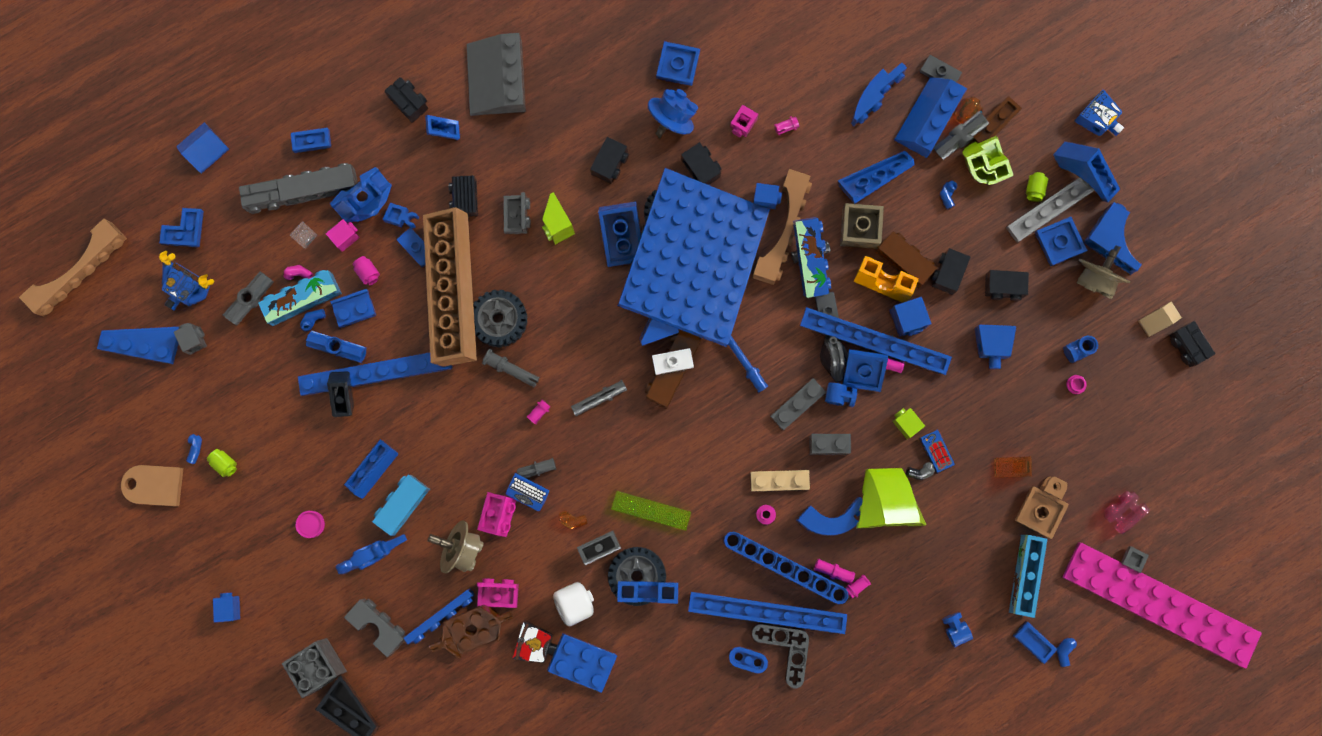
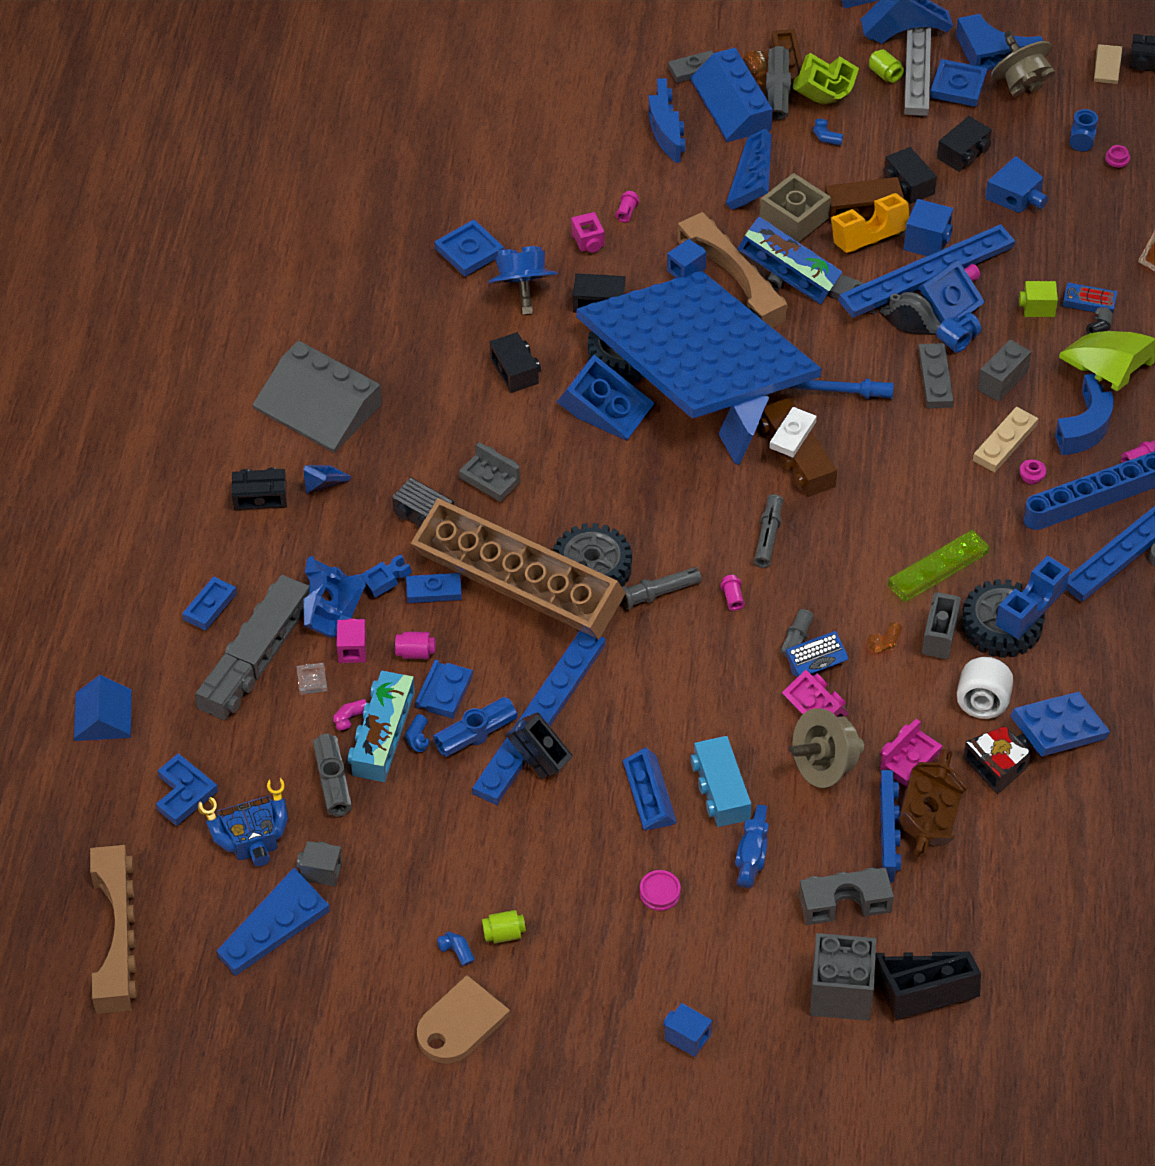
camera: 55 degrees left, 30 degrees down
(556, 222) = (536, 435): lime slope -> none

